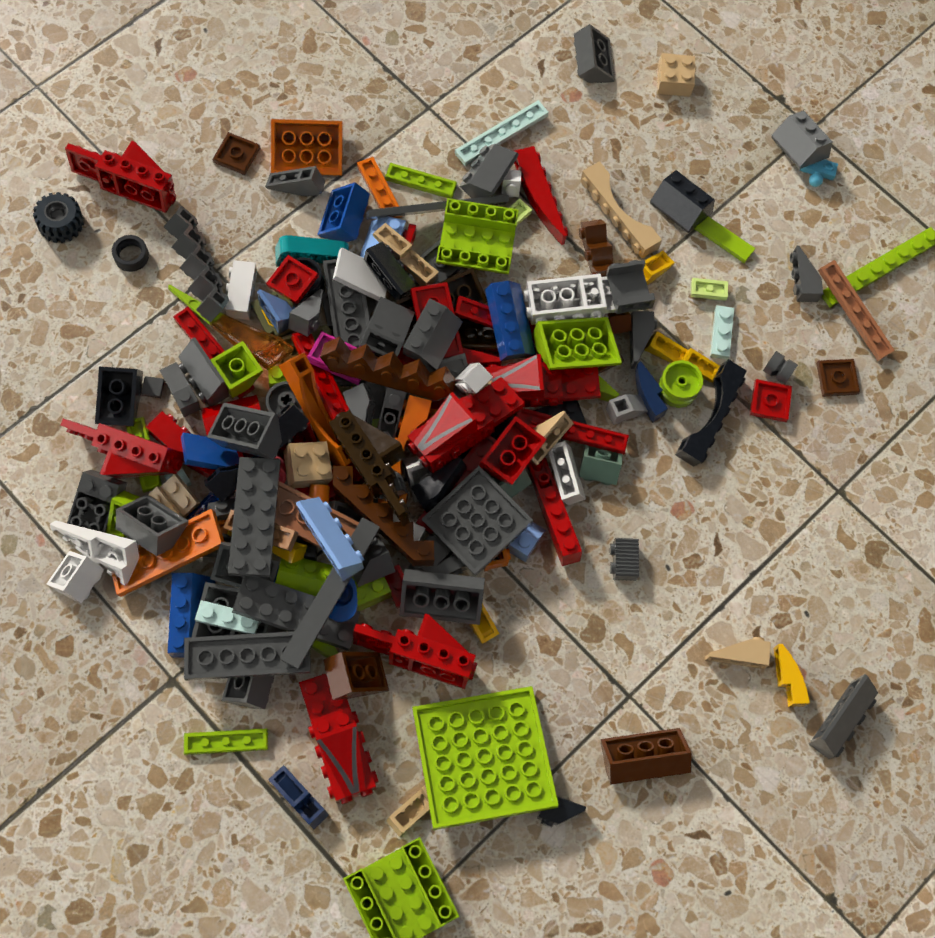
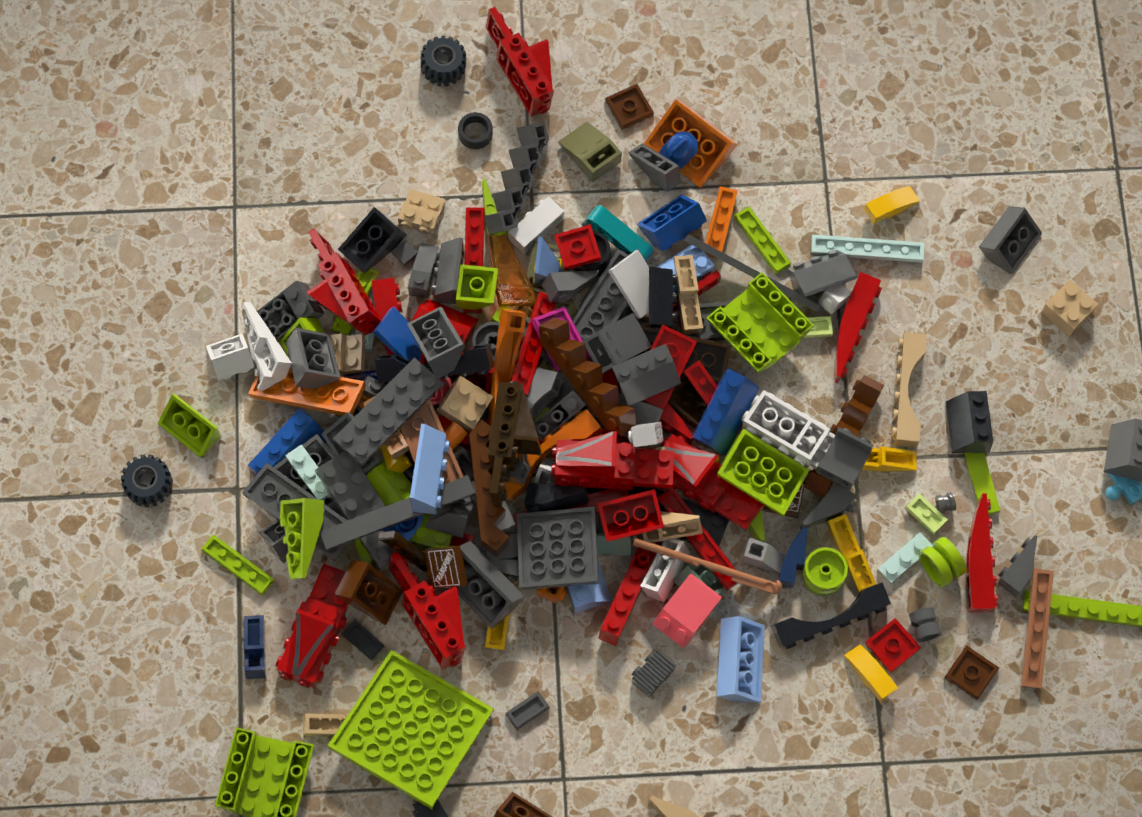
camera: 45 degrees right, 0 degrees up
(87, 660) = (188, 426): none -> lime slope
(88, 735) = (146, 480): none -> black wheel
(139, 346) = (421, 212): none -> tan plate
(236, 204) = (591, 151): none -> olive slope
(263, 668) = (302, 526): none -> lime wedge
(303, 154) = (680, 148): none -> blue piece
(364, 615) = (404, 548): none -> dark brown tile
(382, 717) = (363, 640): none -> black tile
(404, 604) = (445, 567): none -> reddish brown tile
(490, 91) = (891, 204): none -> yellow slope
(556, 666) = (527, 710): none -> dark grey tile
(612, 491) = (687, 611): none -> coral slope
(629, 434) = (737, 576): none -> nougat bar
(677, 497) = (740, 660): none -> light blue slope
(715, 270) = (945, 503): none -> dark grey wheel
(754, 312) = (942, 562): none -> lime wheel
(774, 291) = (980, 561): none -> red slope
(775, 432) = (871, 673): none -> yellow slope

